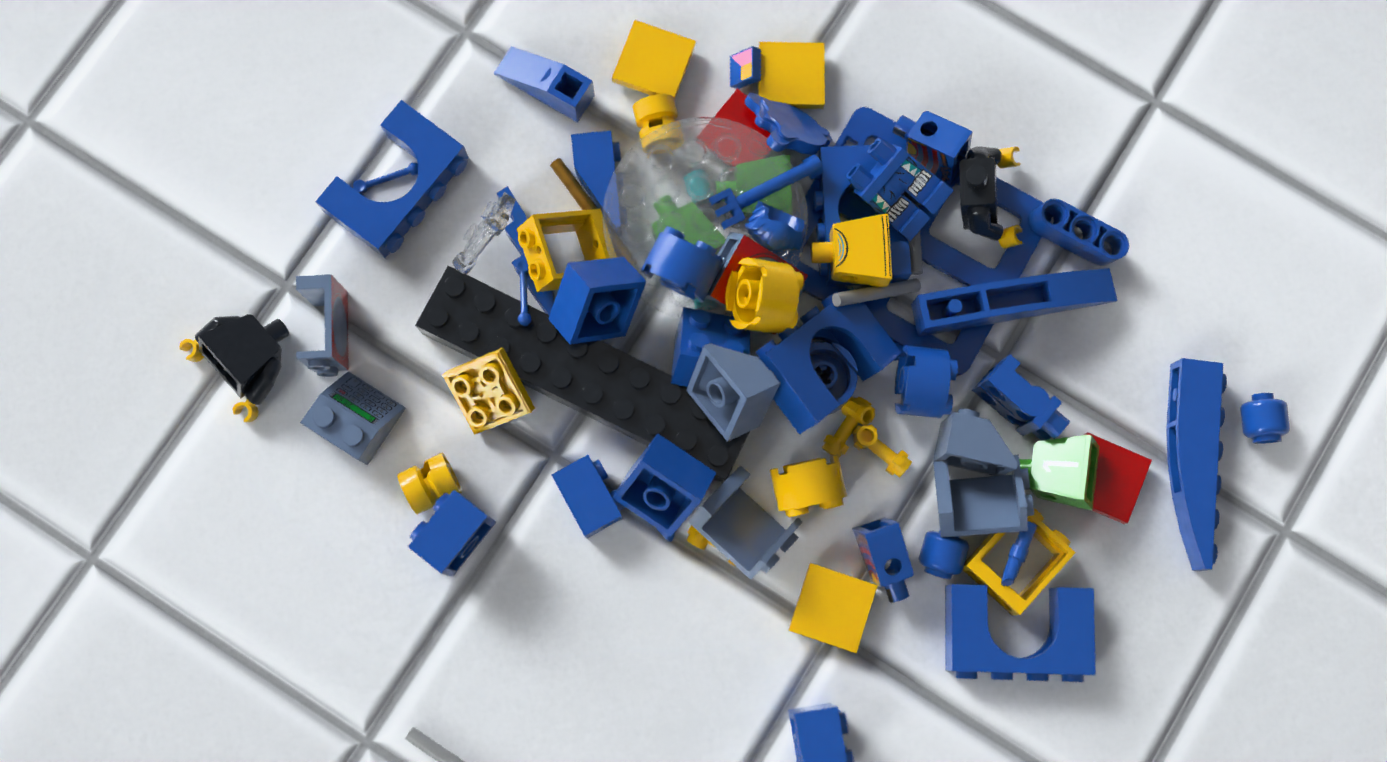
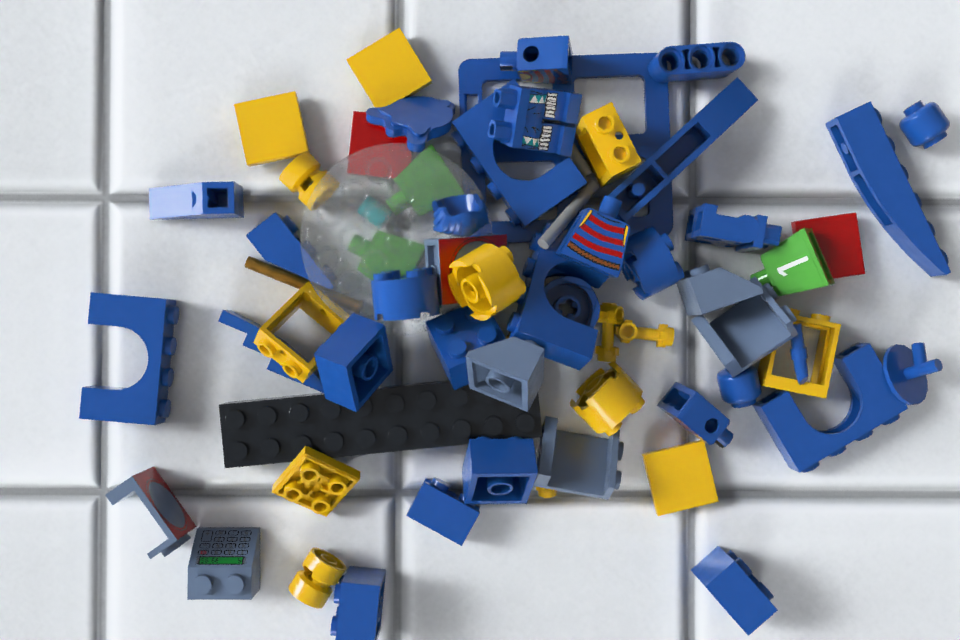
camera: 30 degrees left, 10 degrees up
(242, 355) = (107, 572): black torso -> none
(362, 186) = (108, 377): blue hinge -> none
(494, 221) = (229, 361): clear plate -> none
(522, 269) = (307, 411): blue hinge -> none
(745, 67) = (349, 88): tile -> none
(810, 167) = (455, 146): blue hinge -> none
(857, 251) = (535, 193): yellow torso -> none
(889, 324) = (597, 239): none -> blue torso
(946, 260) = (605, 153): none -> yellow window
(979, 193) = (599, 76): black torso -> none
(1115, 642) = (907, 371): none -> blue shield

